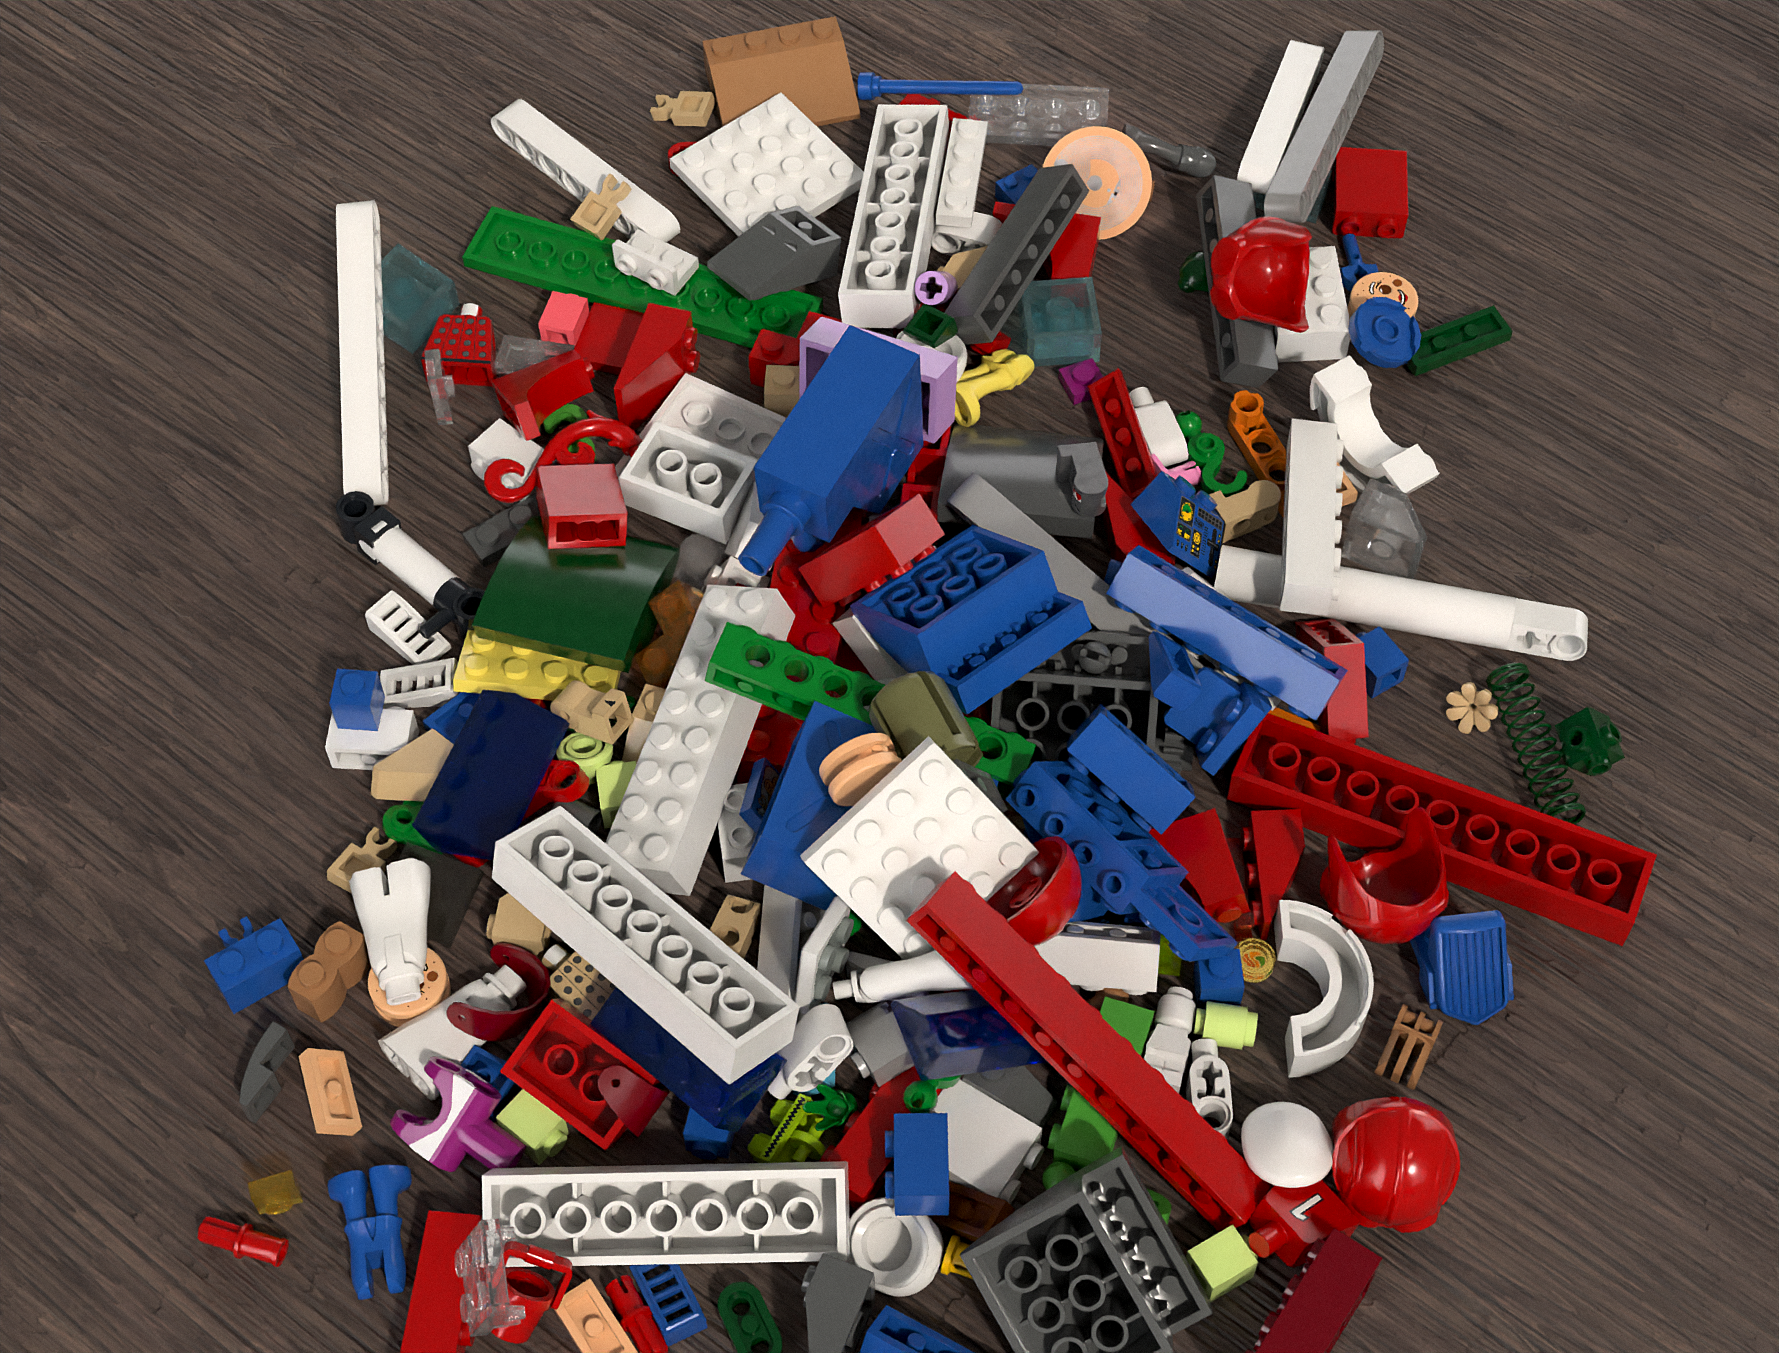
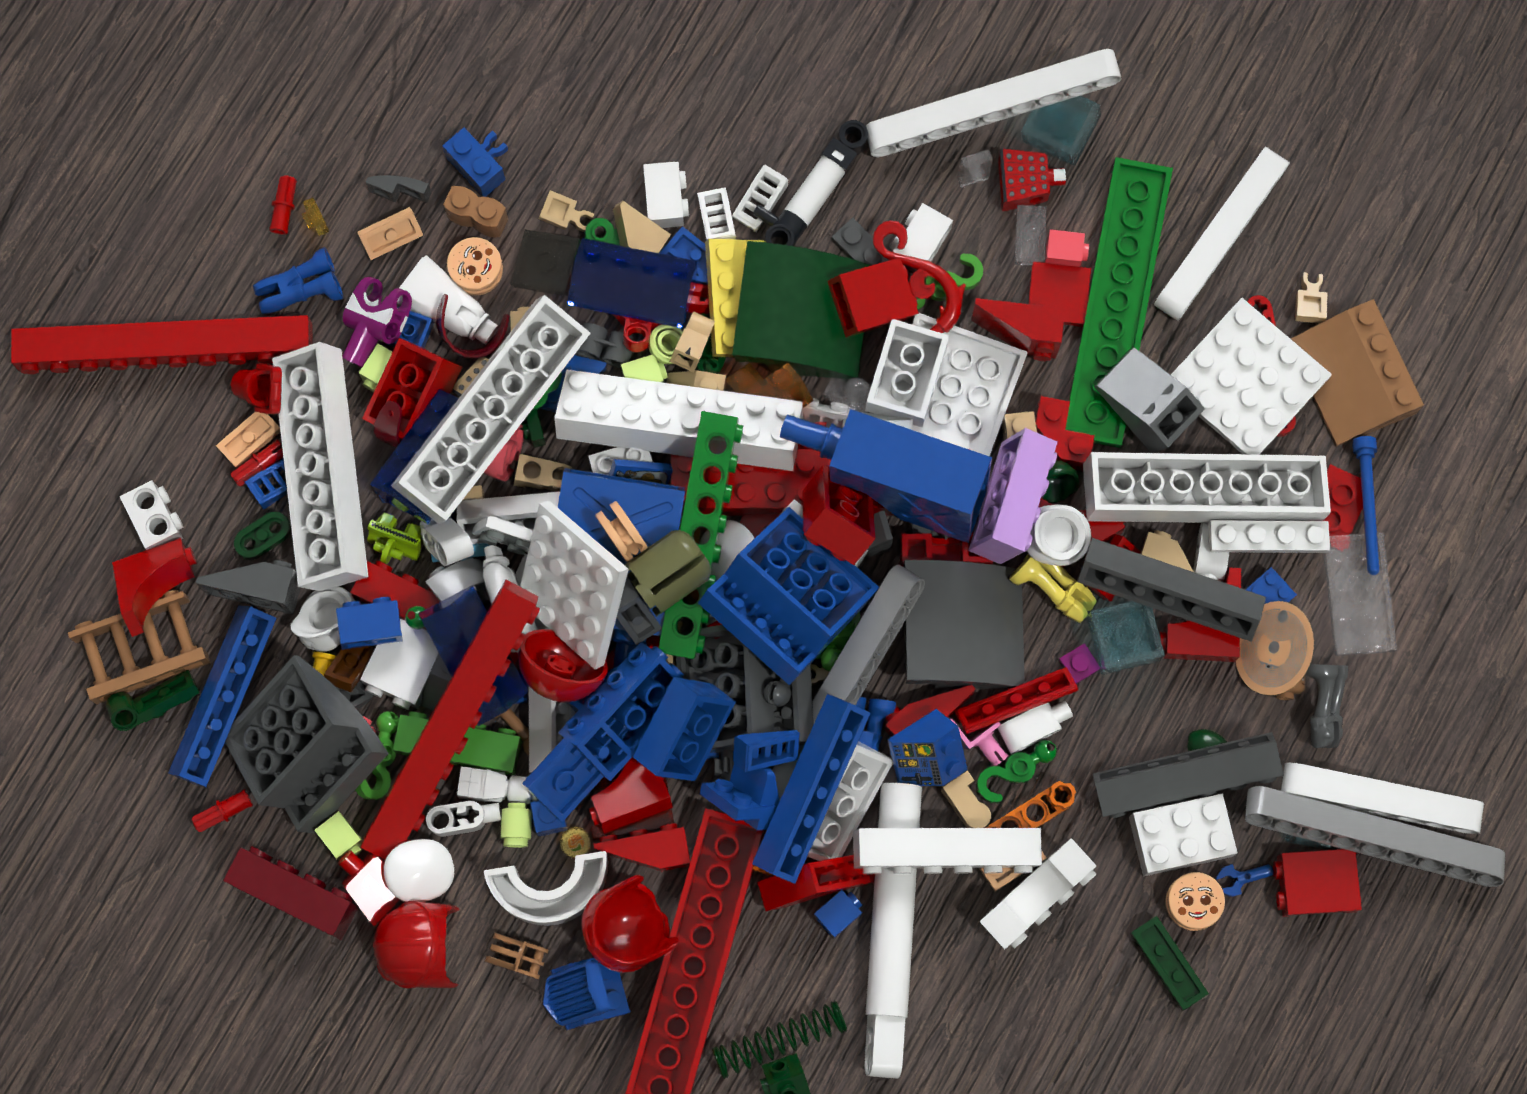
camera: 80 degrees right, 20 degrees up
(357, 699) = (675, 176): blue brick -> none
(395, 924) = (512, 243): white piece -> none
(484, 1279) = (262, 353): clear piece -> none
(541, 389) = (983, 241): red arch -> none
(600, 211) = (1173, 251): tan plate -> none
(654, 262) = (1131, 306): white bracket -> none
(835, 1108) = (418, 567): green piece -> none
(930, 297) = (1124, 530): lavender piece -> none
(931, 326) = (1078, 531): dark green slope -> none
(1085, 472) = (934, 671): flat silver leg -> none
(1263, 273) = (1160, 790): red piece -> none
(1384, 332) = (1152, 900): blue tile -> none
(1385, 532) = (954, 910): clear slope -> none
(1471, 708) = (808, 991): tan plant -> none

